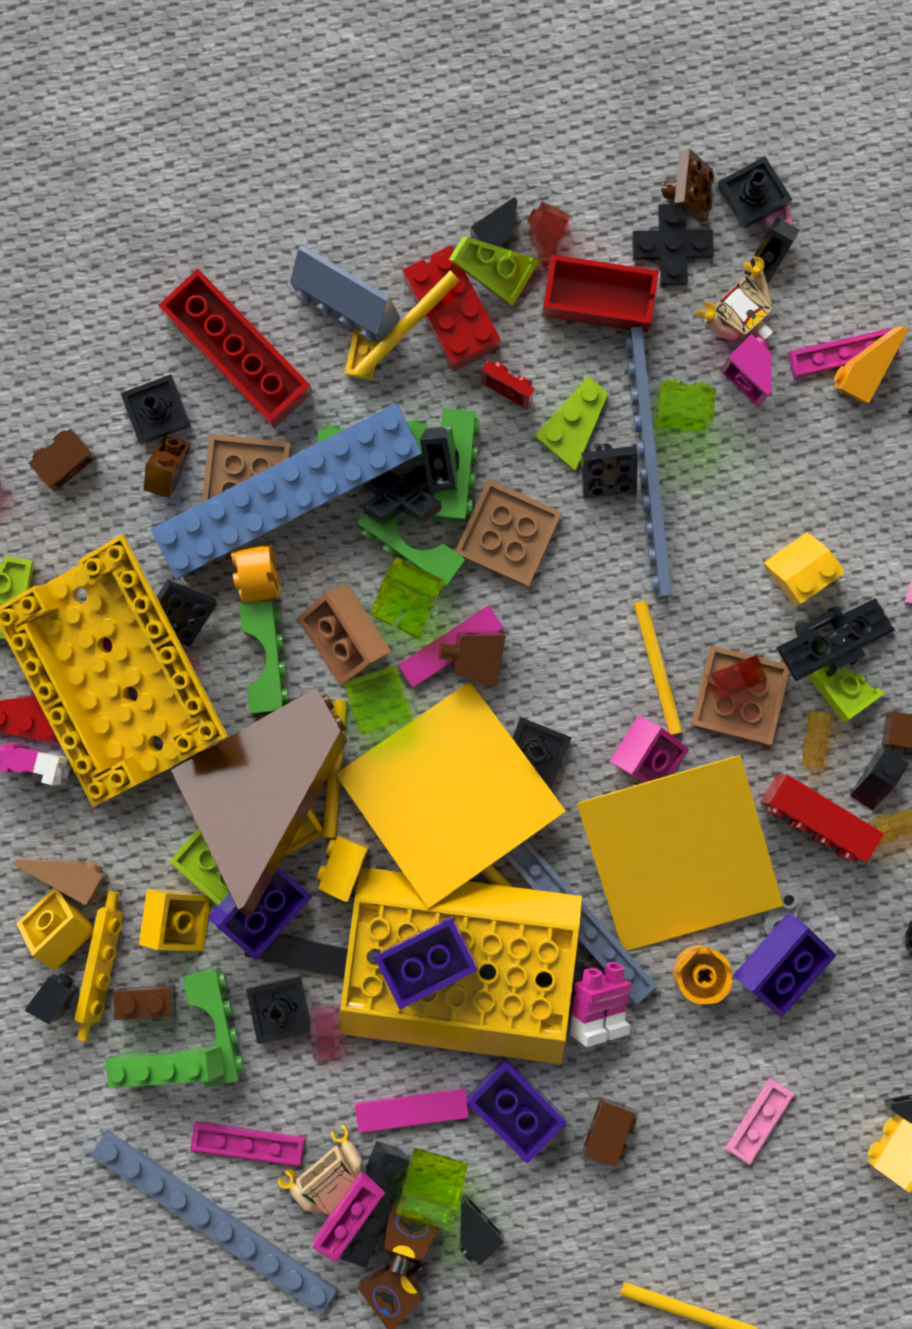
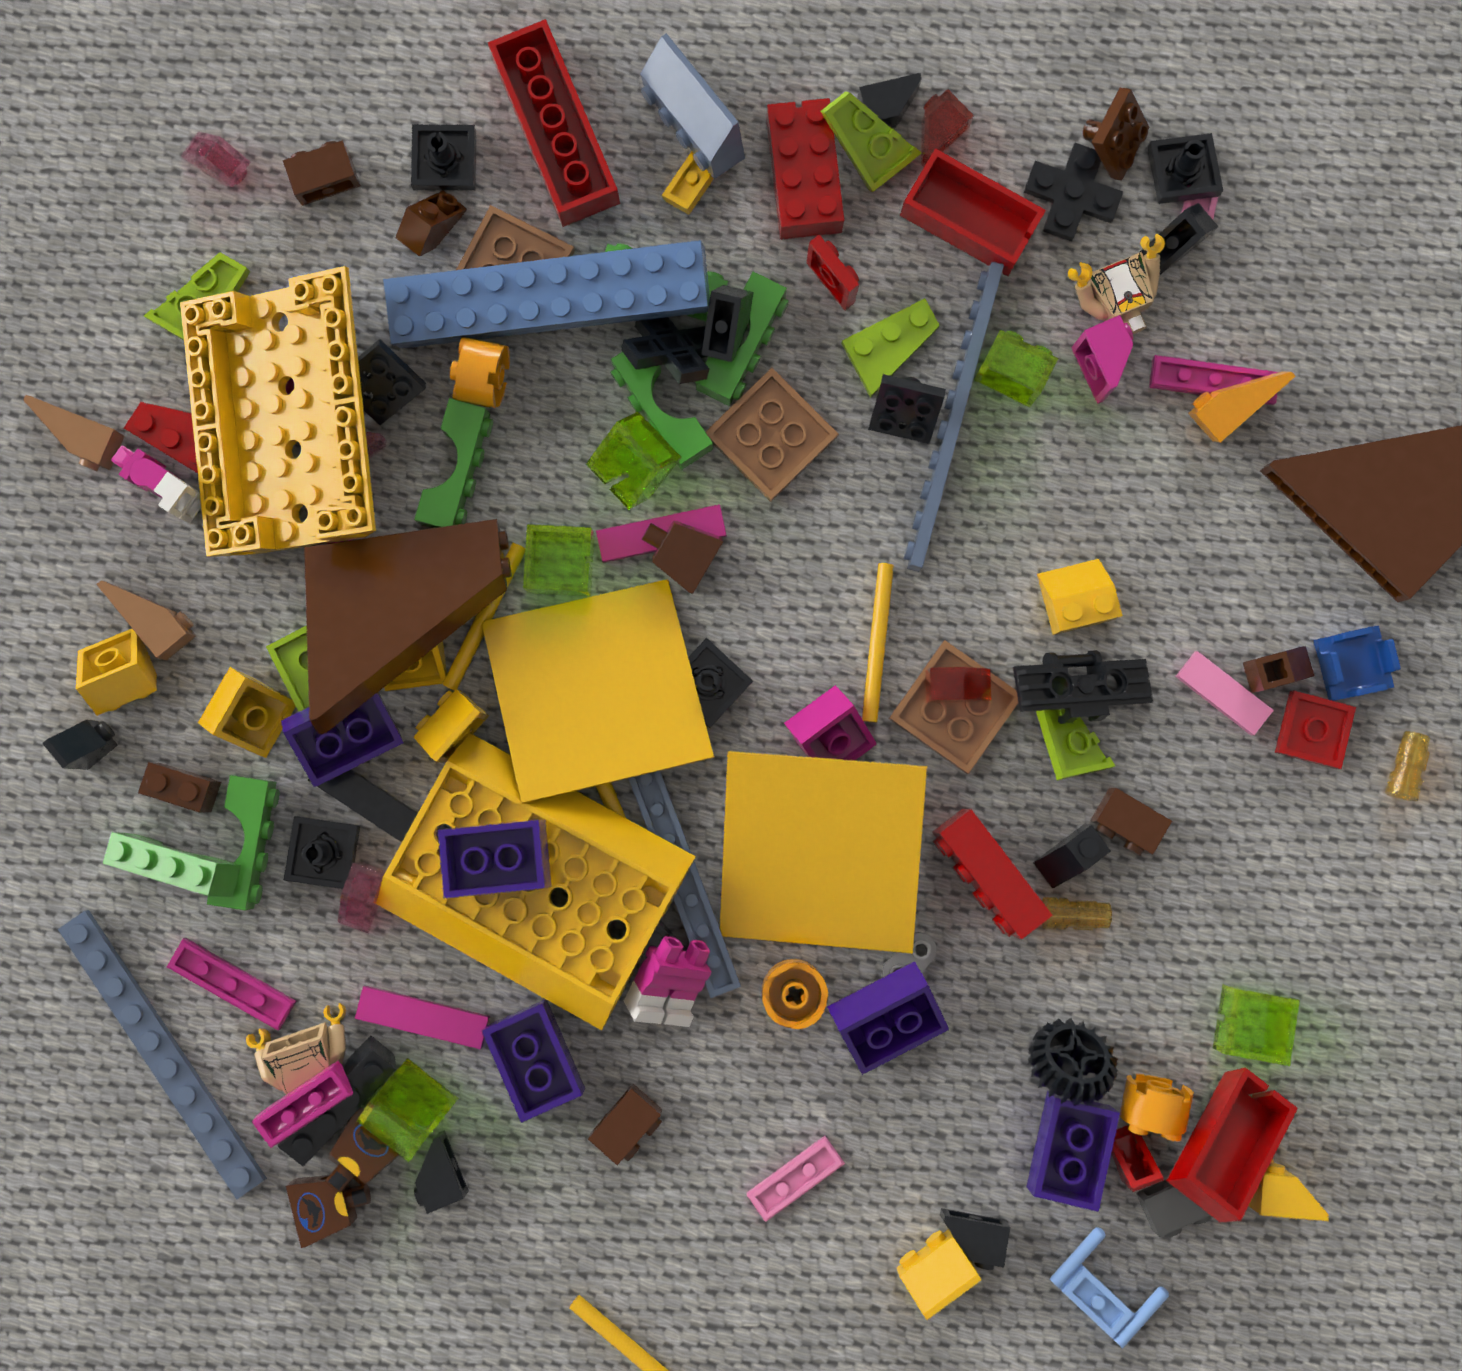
camera: 20 degrees right, 0 degrees up
(99, 966) = (146, 729): yellow plate -> none
(343, 633) = (550, 473): nougat slope -> none
(406, 324) = (747, 164): yellow piece -> none
(816, 737) = (1020, 786): clear yellow axle -> none

